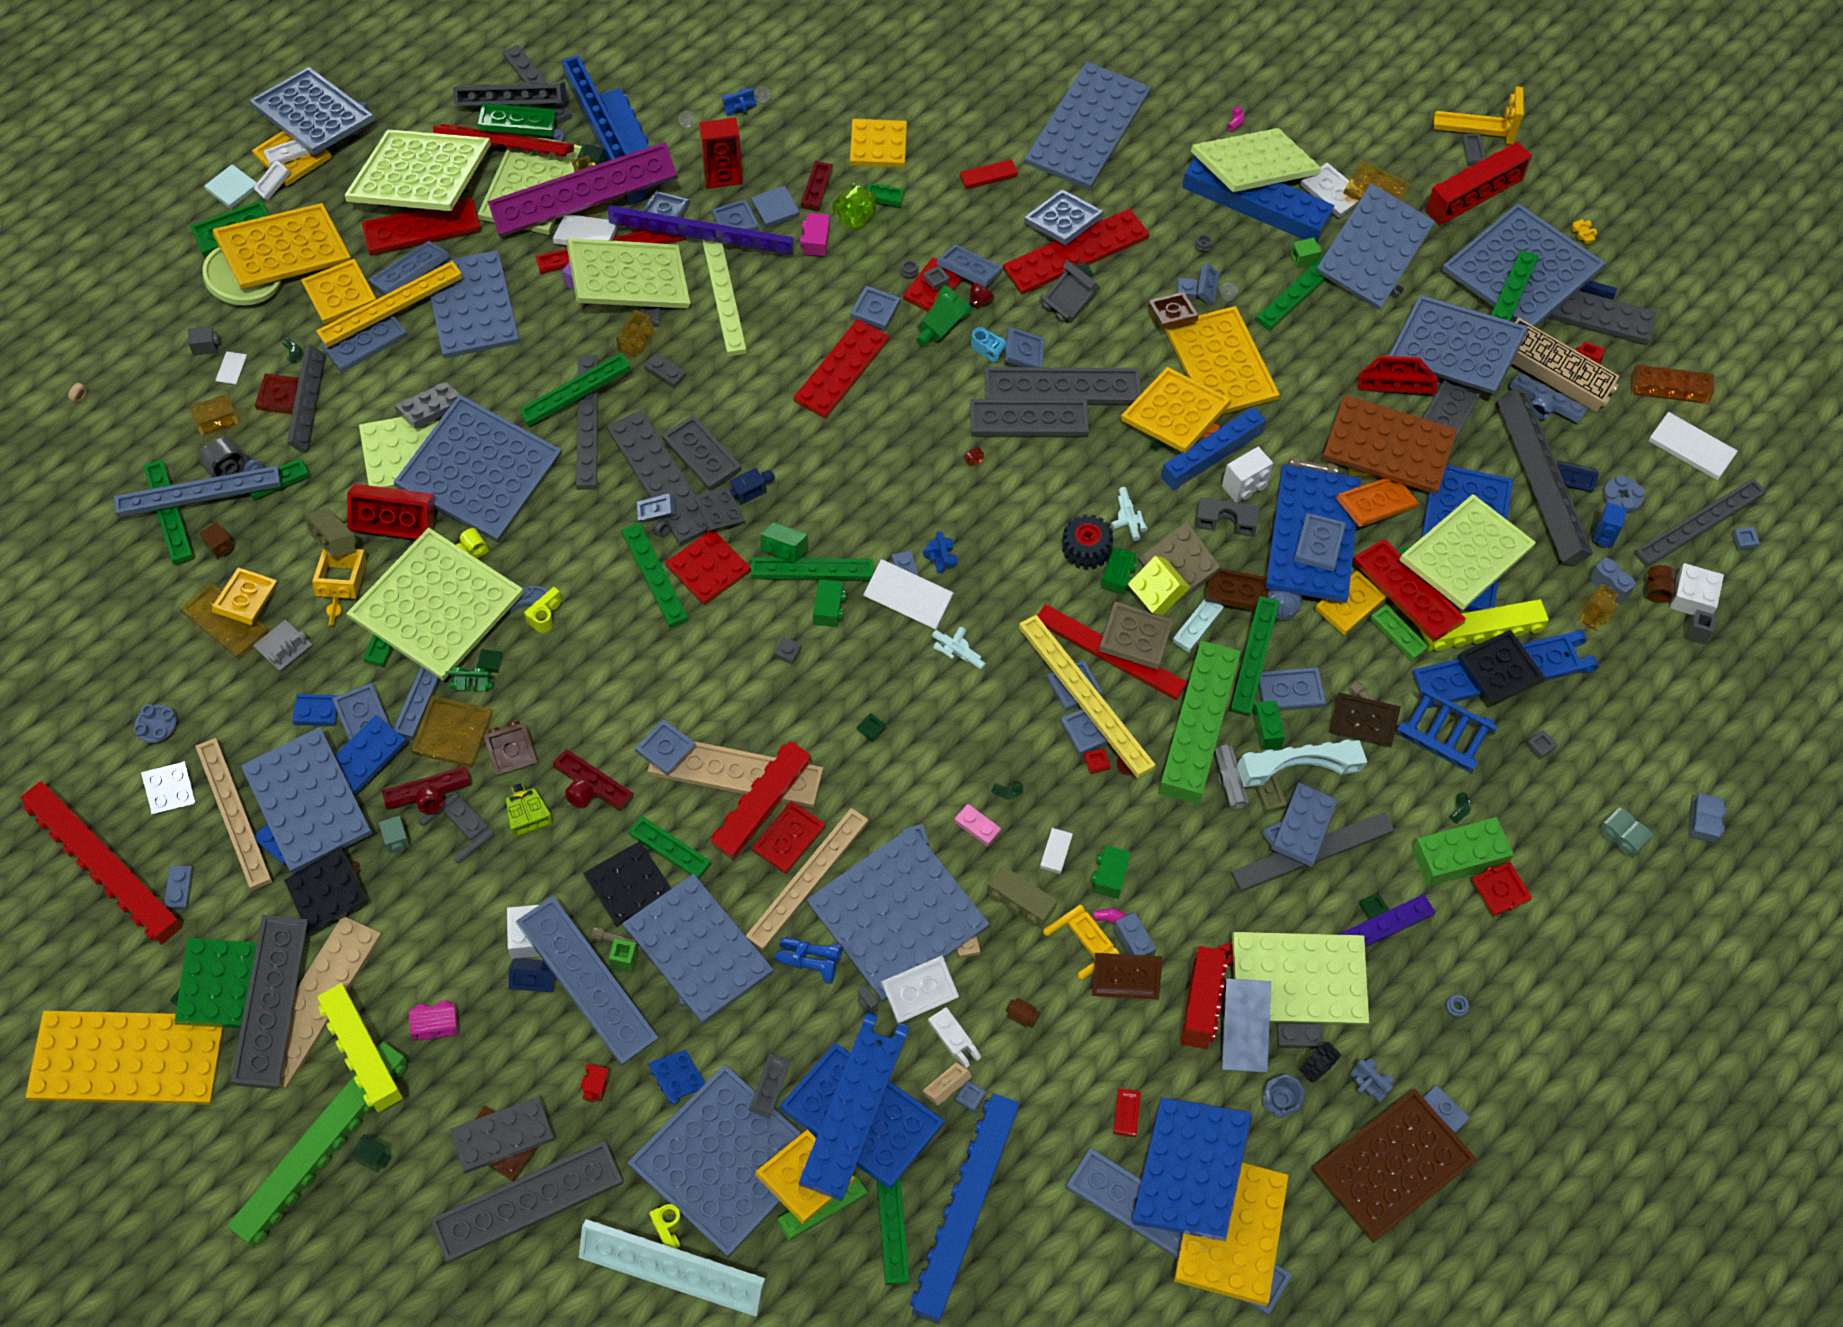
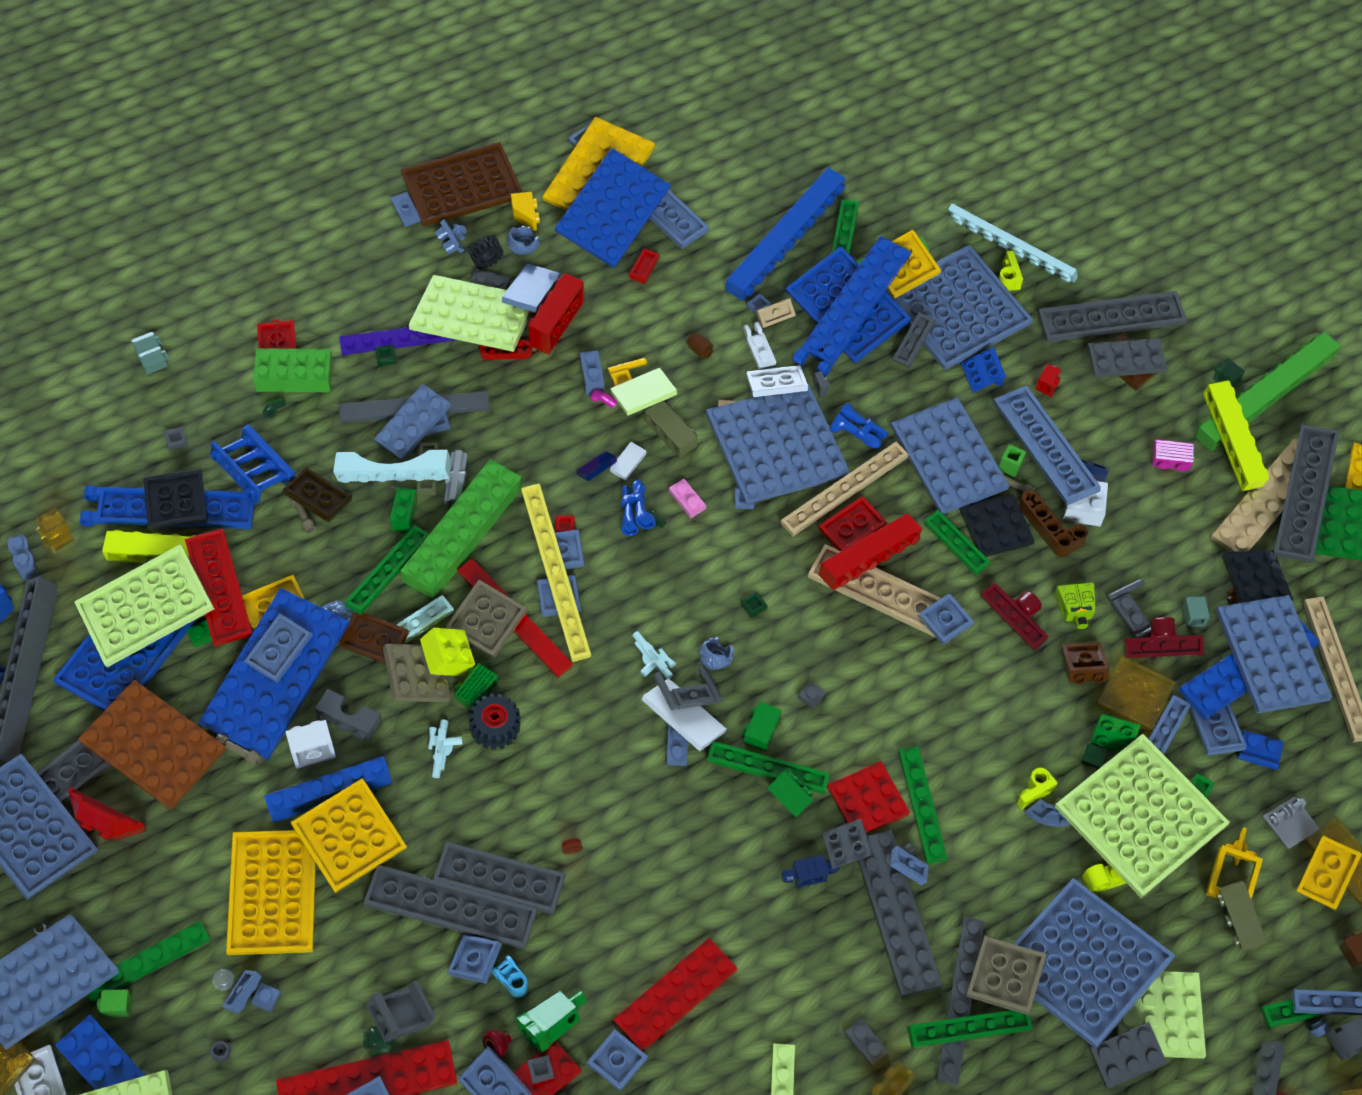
camera: 165 degrees left, 0 degrees up
(389, 511) = (1180, 925): red brick -> none
(548, 435) = (1006, 975): none -> dark tan plate
(569, 897) = (1033, 505): none -> reddish brown beam
(701, 452) = (849, 926): dark grey plate -> none
(894, 659) = (714, 655): none -> sand blue hair
(905, 609) = (692, 695): none -> dark grey plate
(937, 552) = (642, 748): blue hips -> none
(1034, 802) = (642, 519): none -> blue piece
(1066, 923) = (643, 391): none -> yellowish green tile
(1087, 832) = (596, 466): none -> clear blue tile
(1112, 871) = (590, 426): green brick -> none
(1127, 976) = (609, 345): reddish brown plate -> none
(1172, 310) = (298, 958): reddish brown plate -> none
(1293, 688) = (365, 542): sand blue tile -> none
(1302, 1145) = (524, 209): none -> yellow slope
(1377, 501) = (199, 686): orange tile -> none
(1399, 633) = (244, 564): bright green plate -> none
(1461, 1001) = (358, 266): sand blue plate -> none
(1707, 818) = (76, 346): sand blue brick -> none

